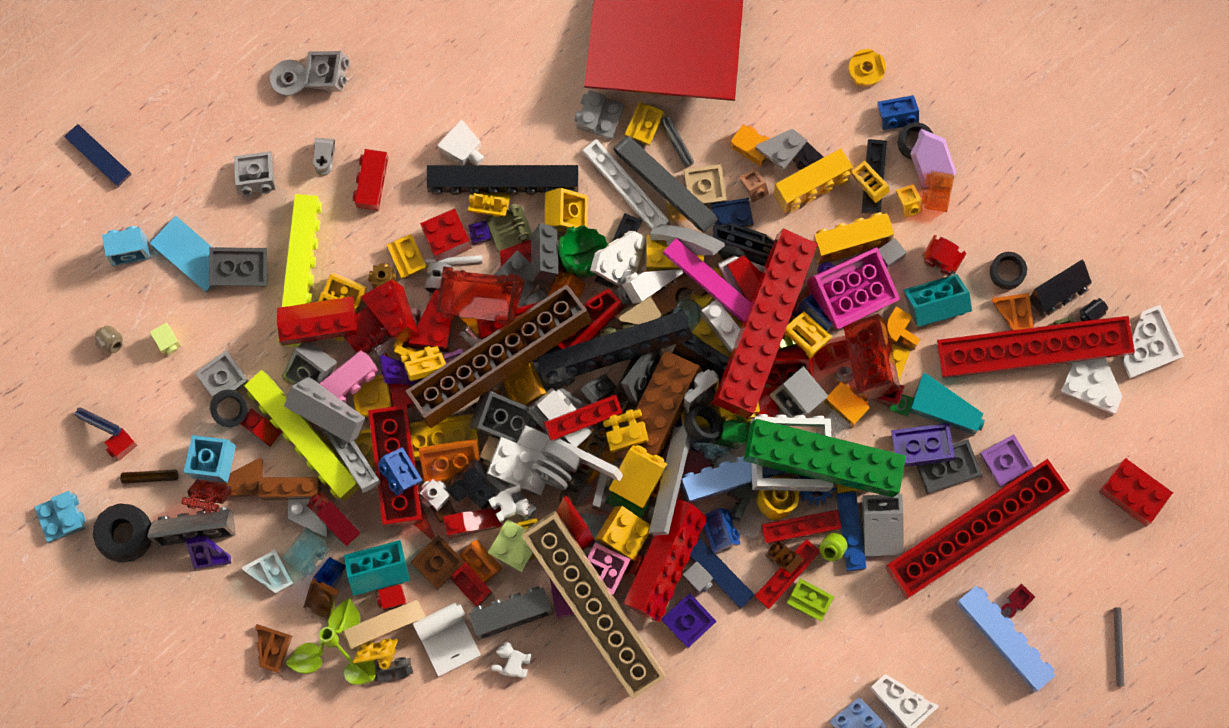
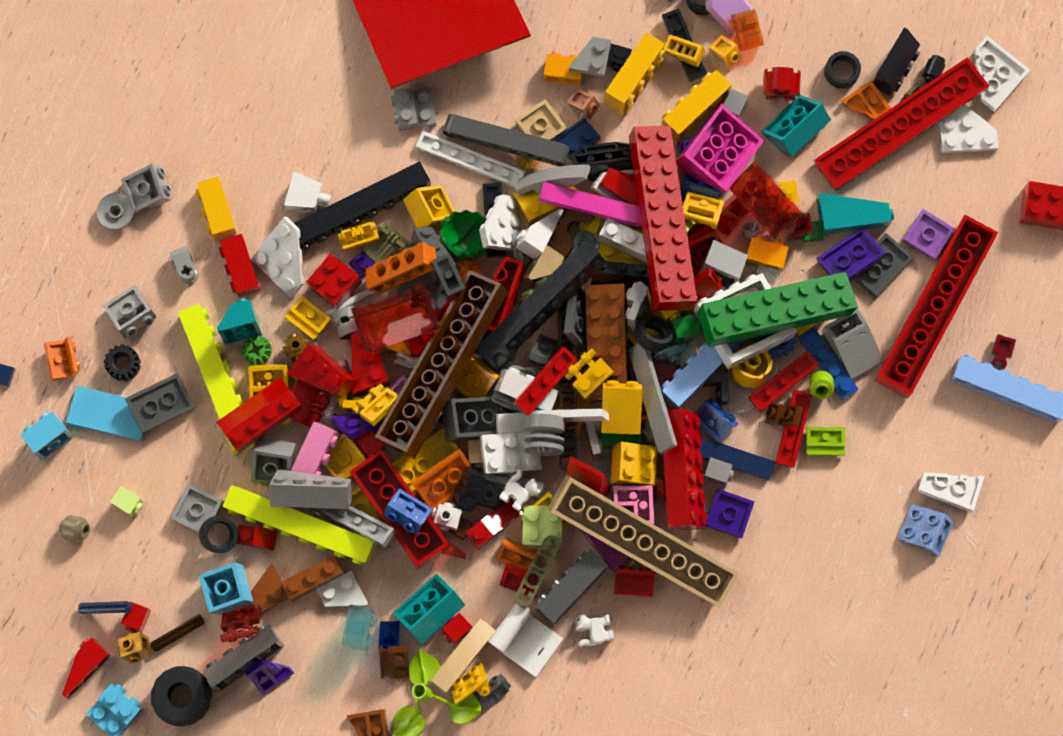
camera: 30 degrees left, 0 degrees up
(57, 462) = (86, 663): none -> red slope
(105, 469) = (134, 647): none -> pearl gold brick
(174, 185) = (61, 359): none -> orange bracket
(225, 225) = (126, 373): none -> black tyre
(270, 572) = (334, 662): white wing -> none
(333, 518) = (368, 584): dark red brick -> none
(342, 230) = (239, 322): none -> teal slope
(353, 268) = (252, 358): none -> bright green gear
(377, 118) = (215, 208): none -> yellow brick
(411, 191) = (282, 257): none -> white plate
(437, 562) = (481, 576): reddish brown plate -> none
(486, 580) = (540, 572): none -> olive beam
(509, 252) = (400, 268): none -> orange brick
(545, 278) = (448, 274): none -> dark grey slope
(570, 637) = (634, 582): none -> red bracket
(644, 123) = (458, 96): yellow plate -> none
(677, 141) = (495, 98): dark grey axle -> none
(774, 403) = (707, 283): none -> red brick
(896, 328) = (772, 162): light orange brick -> none

